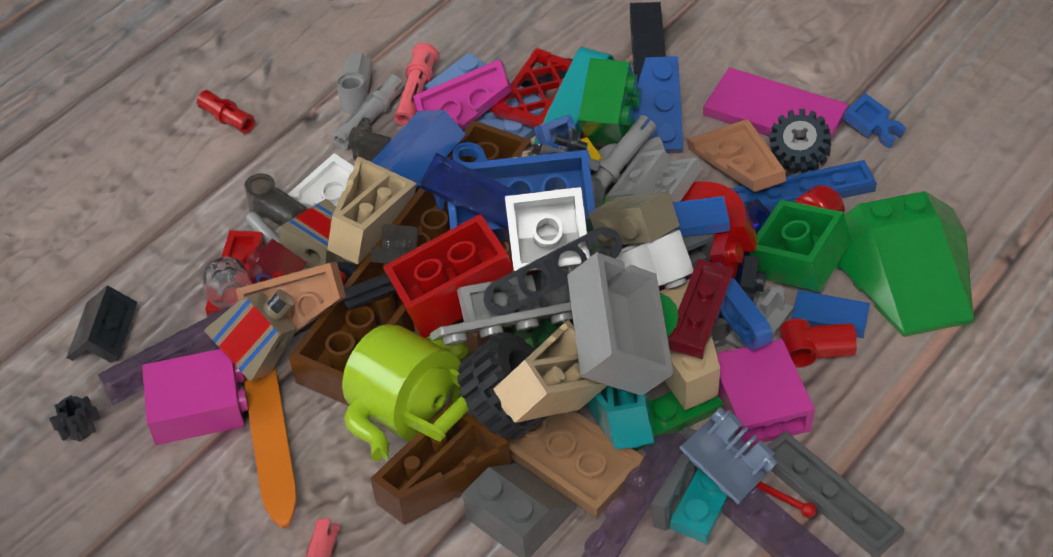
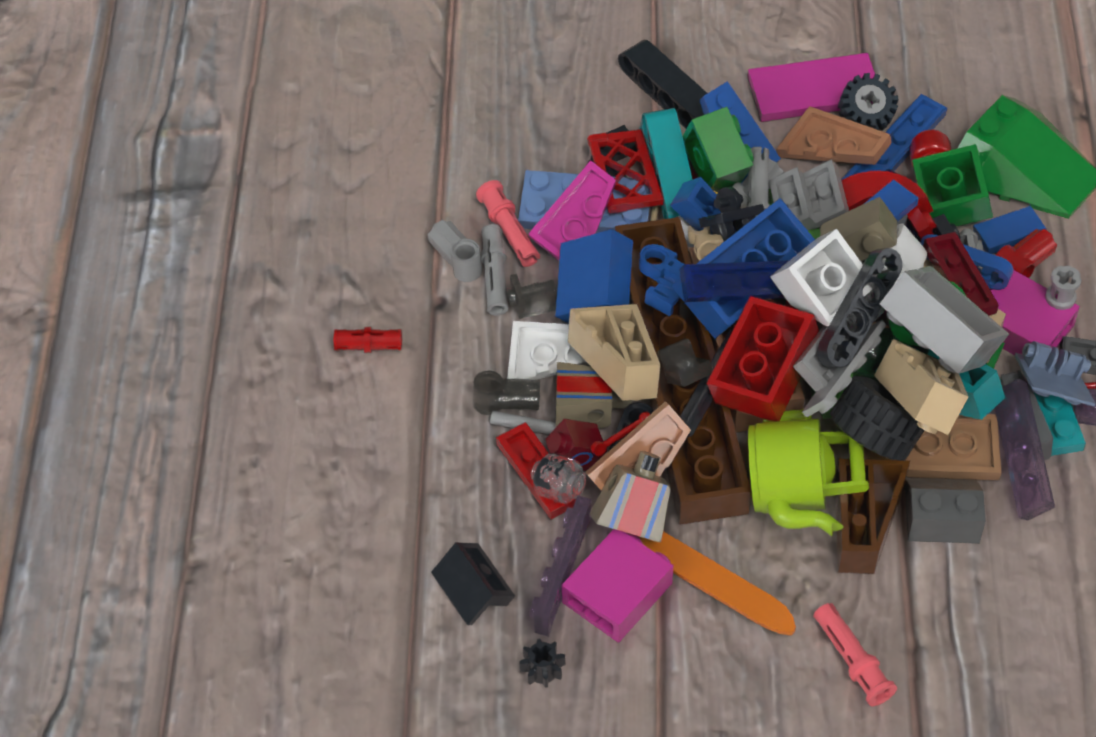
camera: 40 degrees left, 5 degrees up
(804, 381) = (1066, 291): none -> light grey bush
(872, 117) = (895, 56): blue plate -> none

